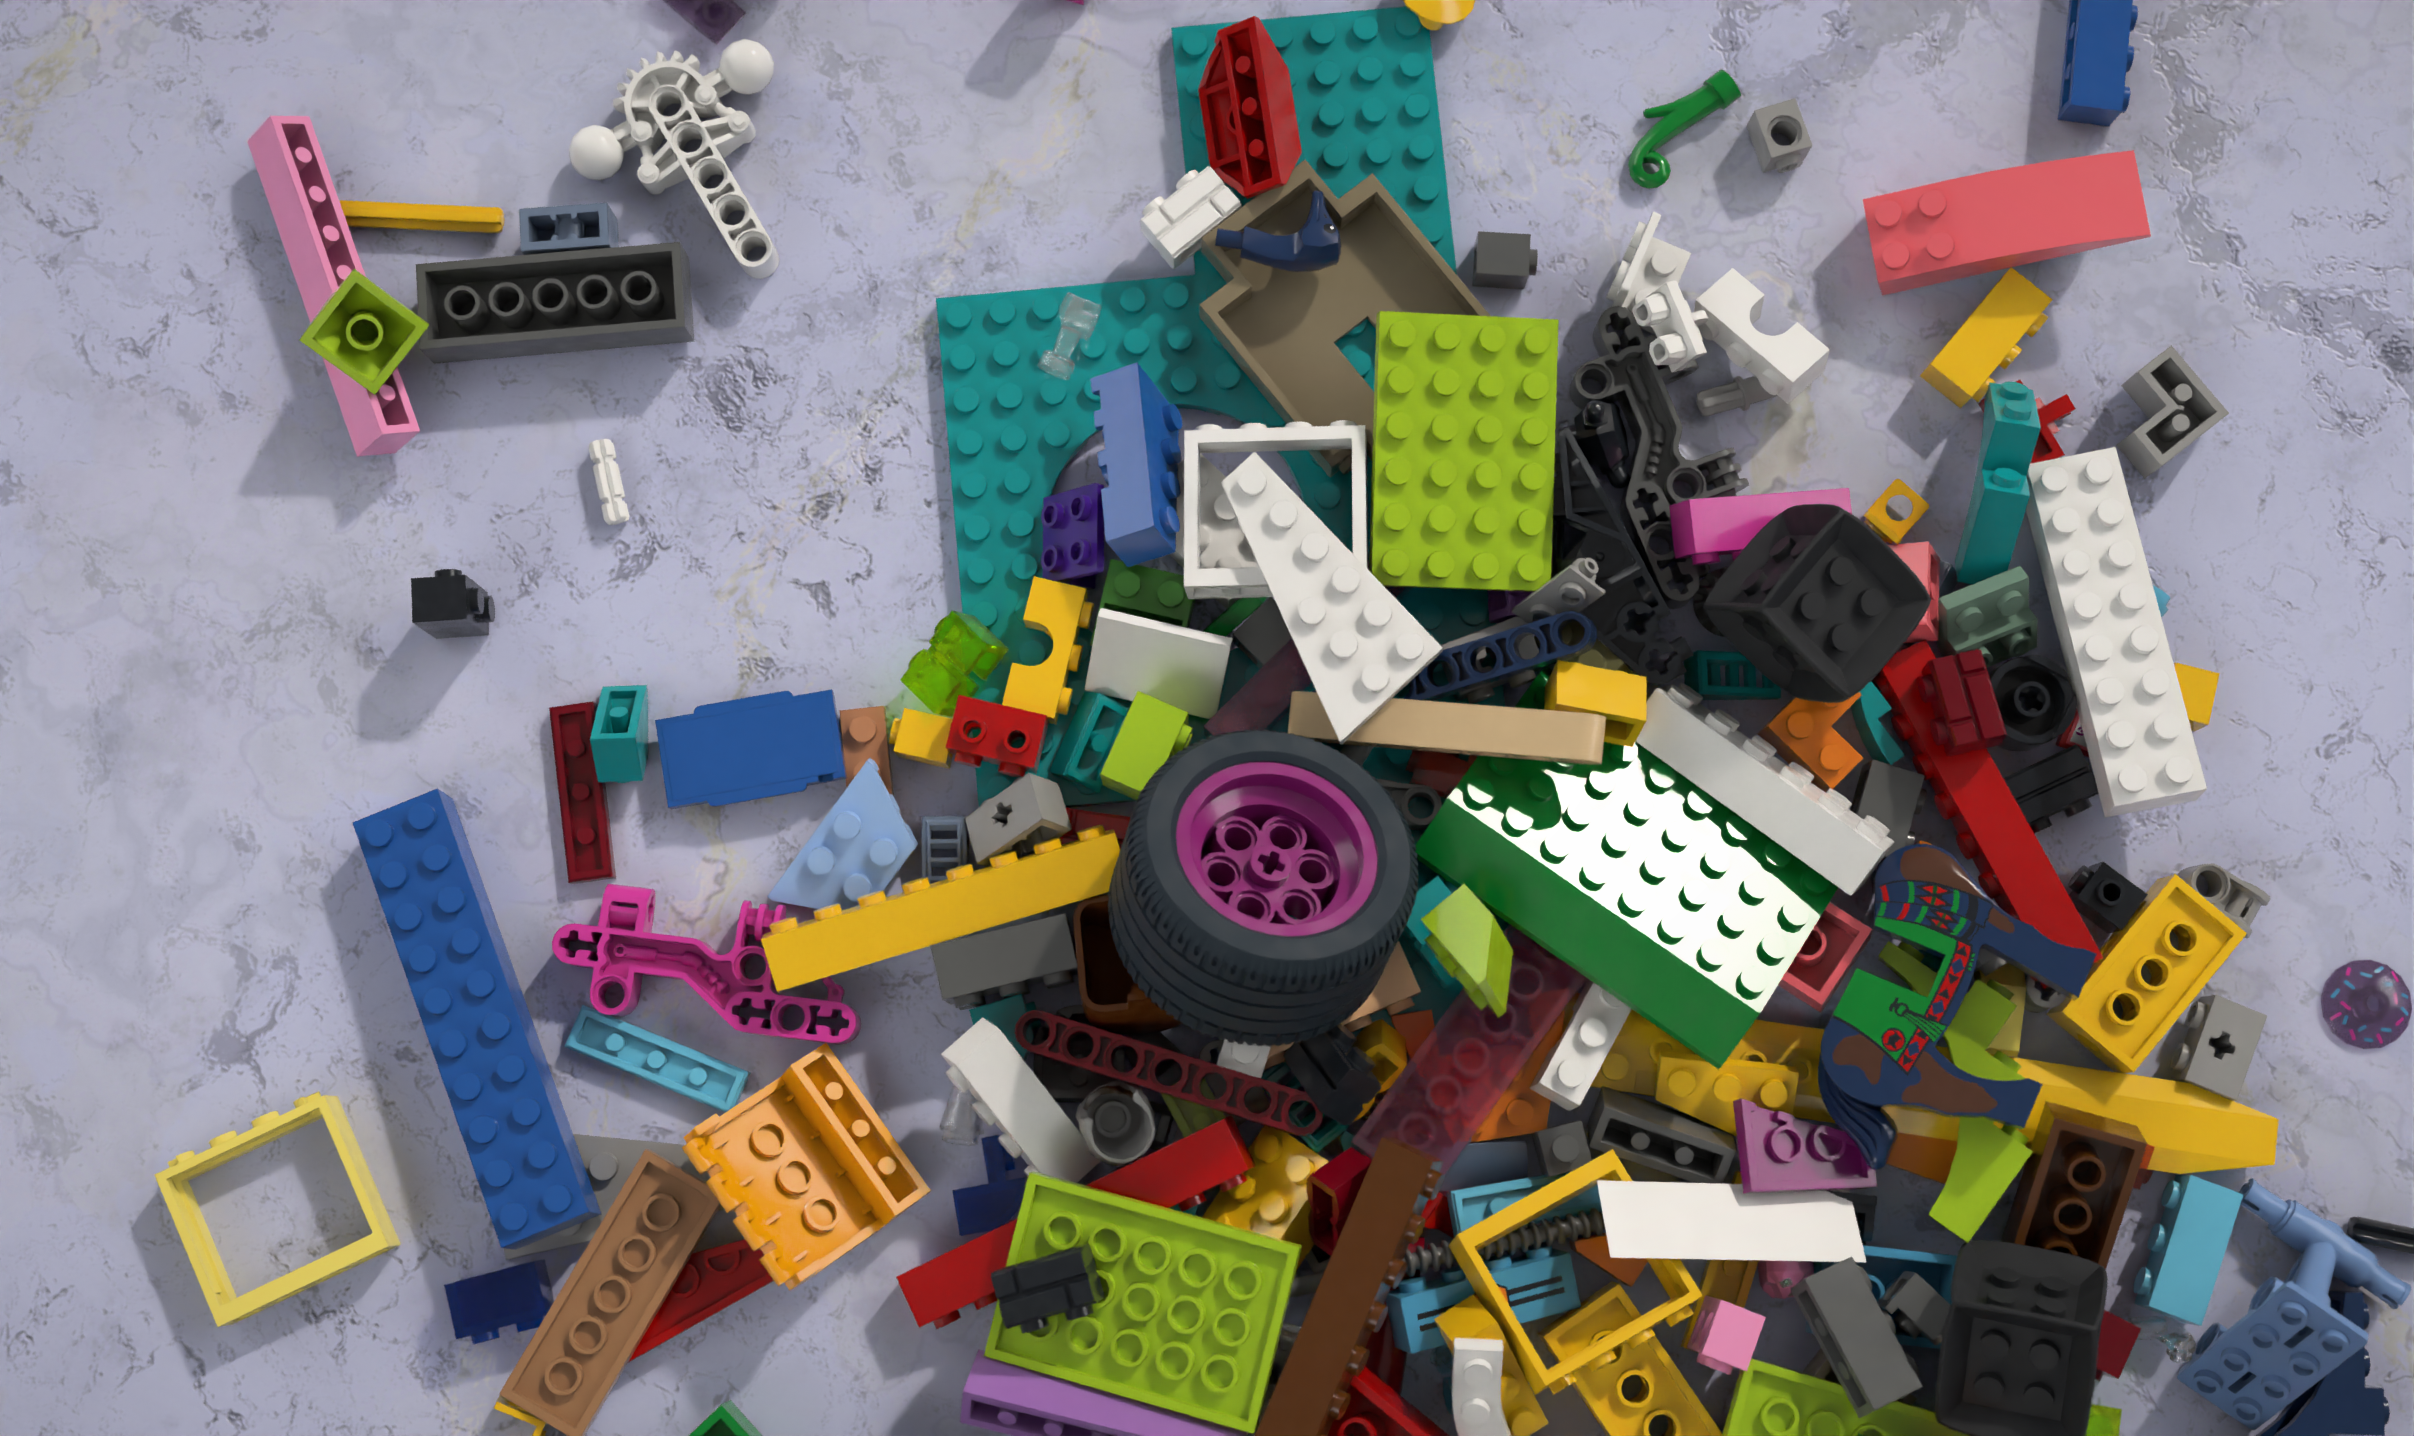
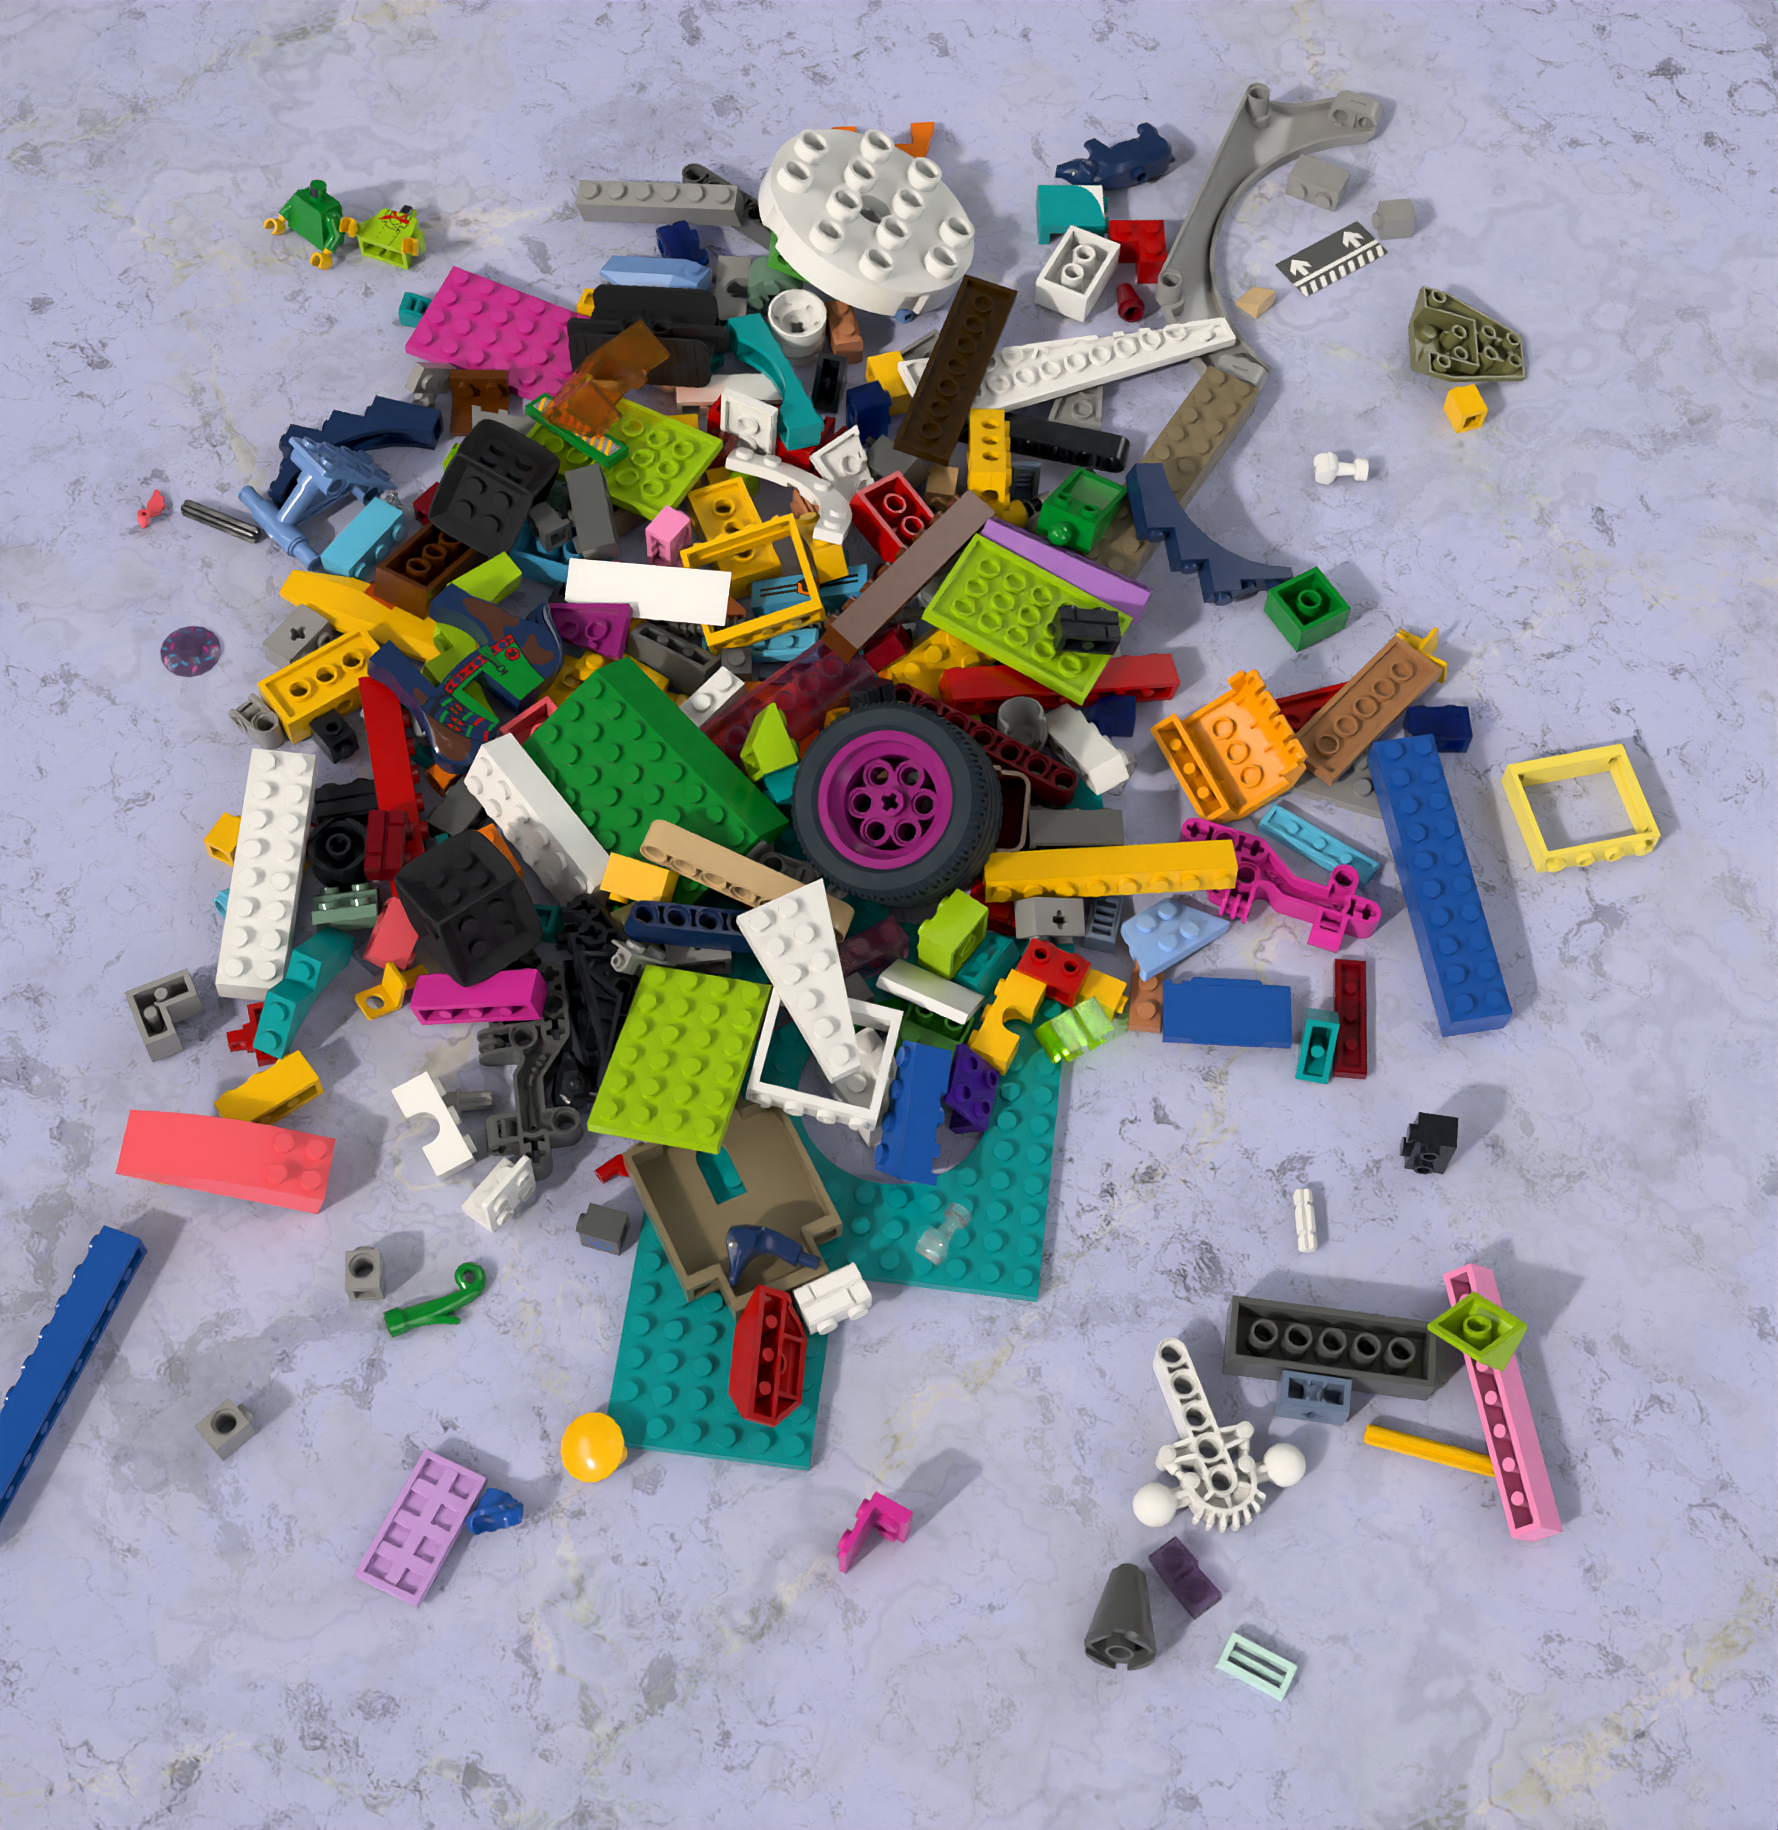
camera: 170 degrees left, 20 degrees down
(1674, 325) = (495, 1135): white hips -> none

